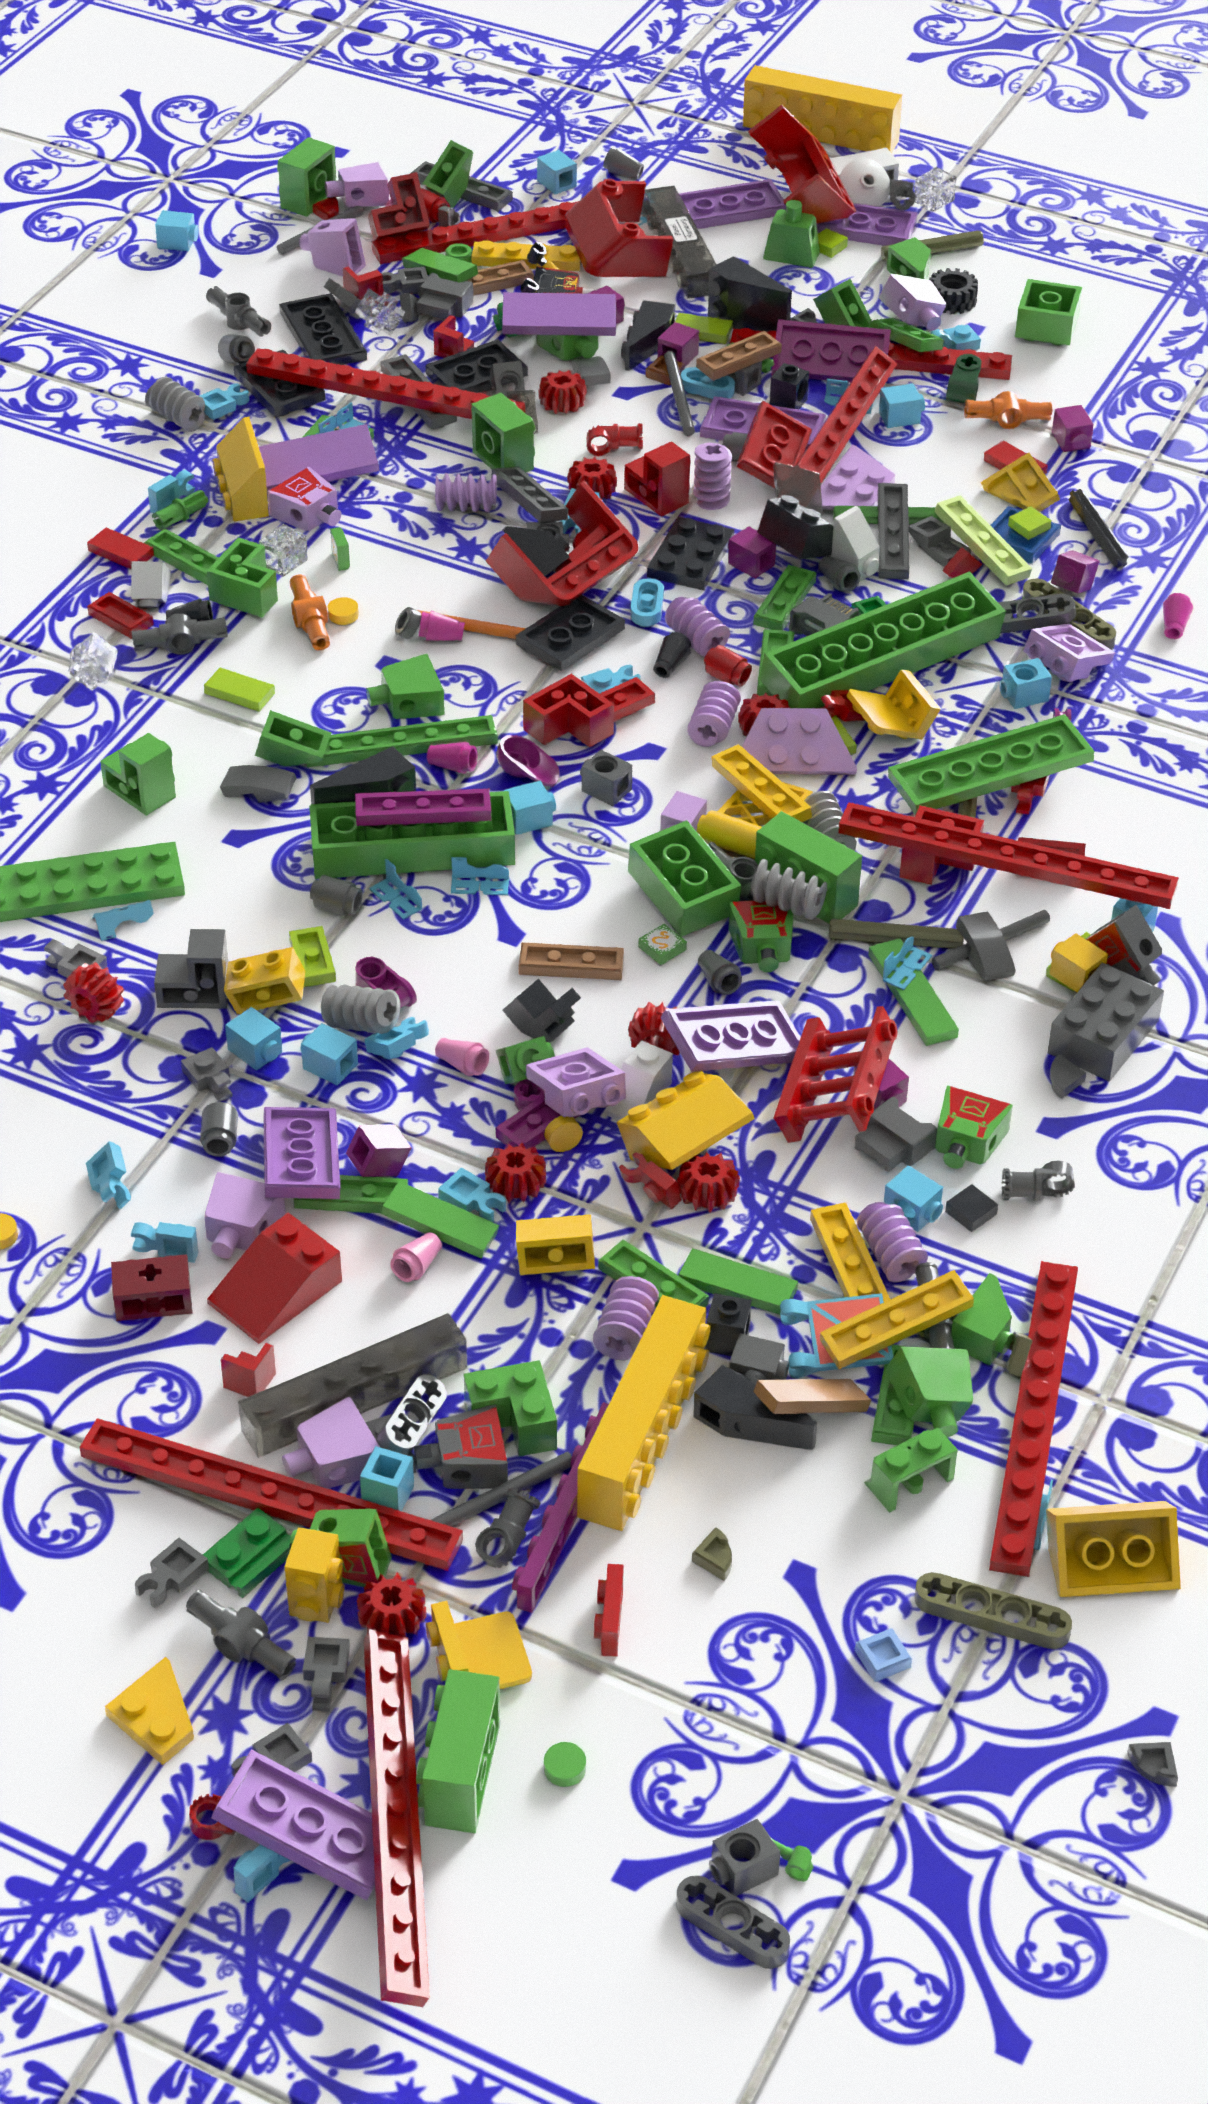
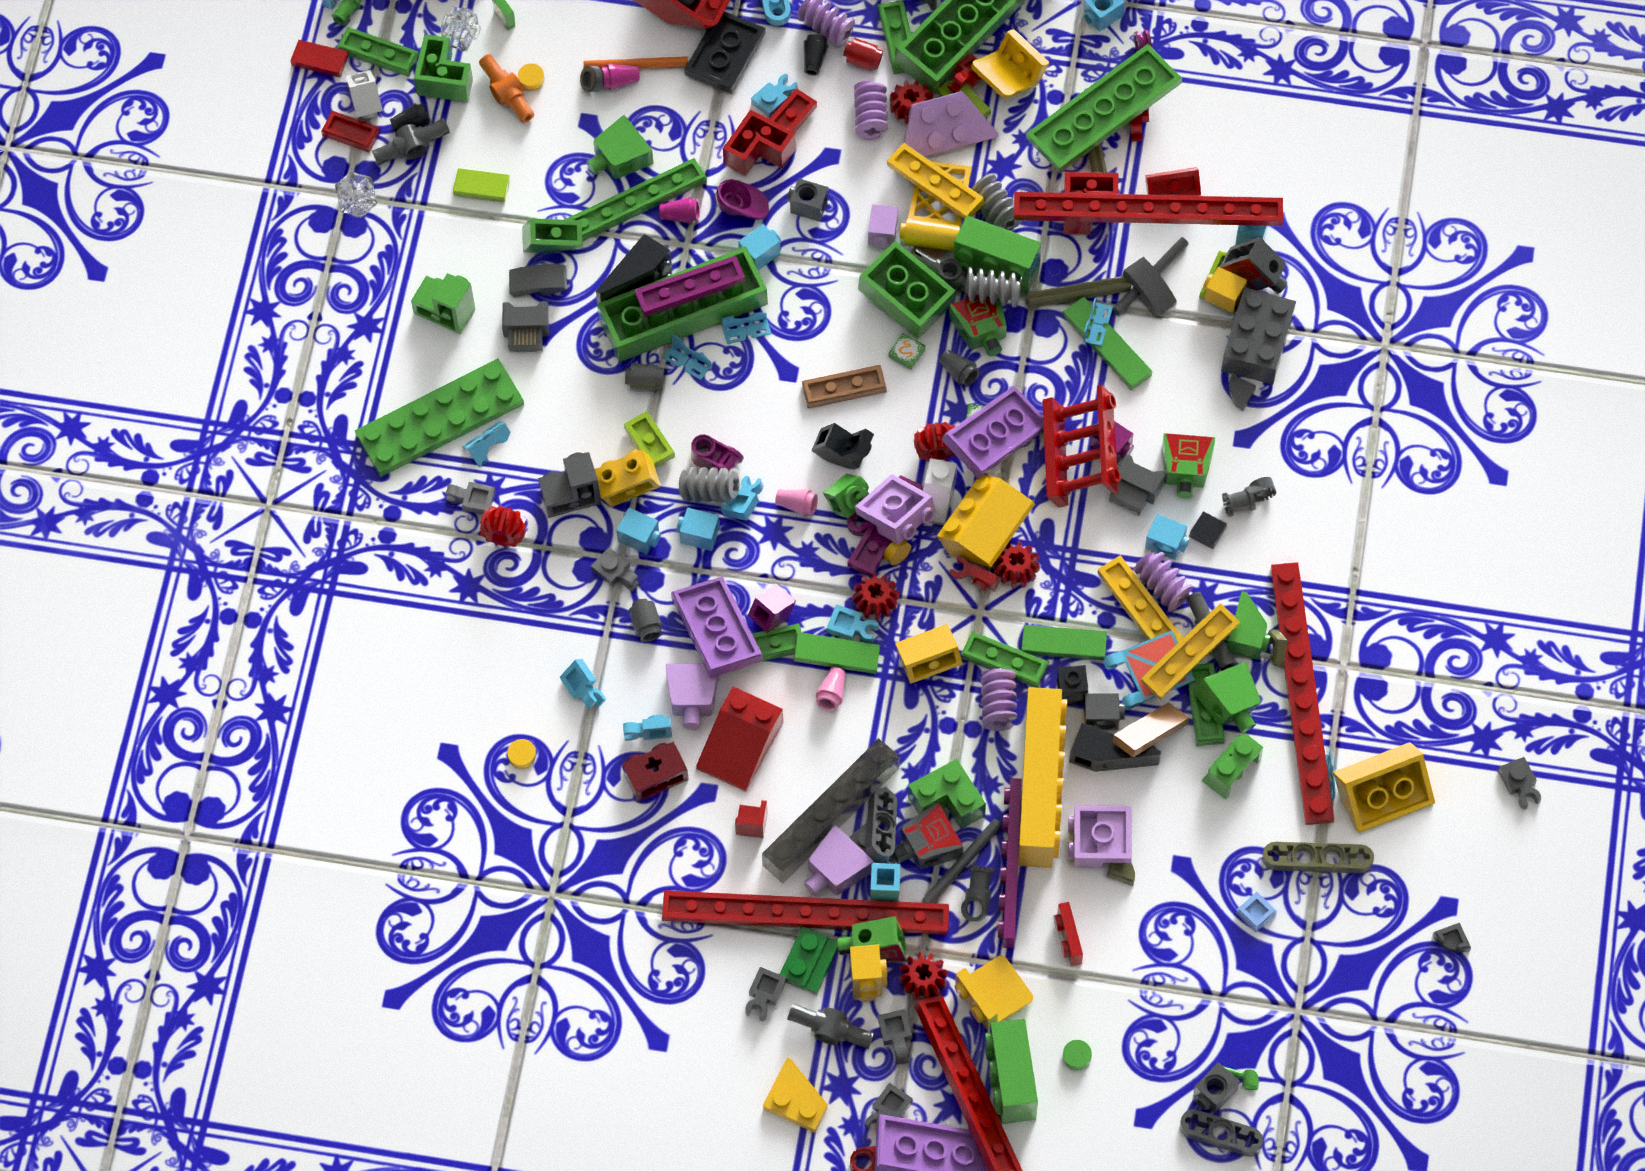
camera: 15 degrees left, 20 degrees up
(222, 818) = (525, 326): none -> dark grey piece
(698, 1501) = (1100, 835): none -> lavender plate

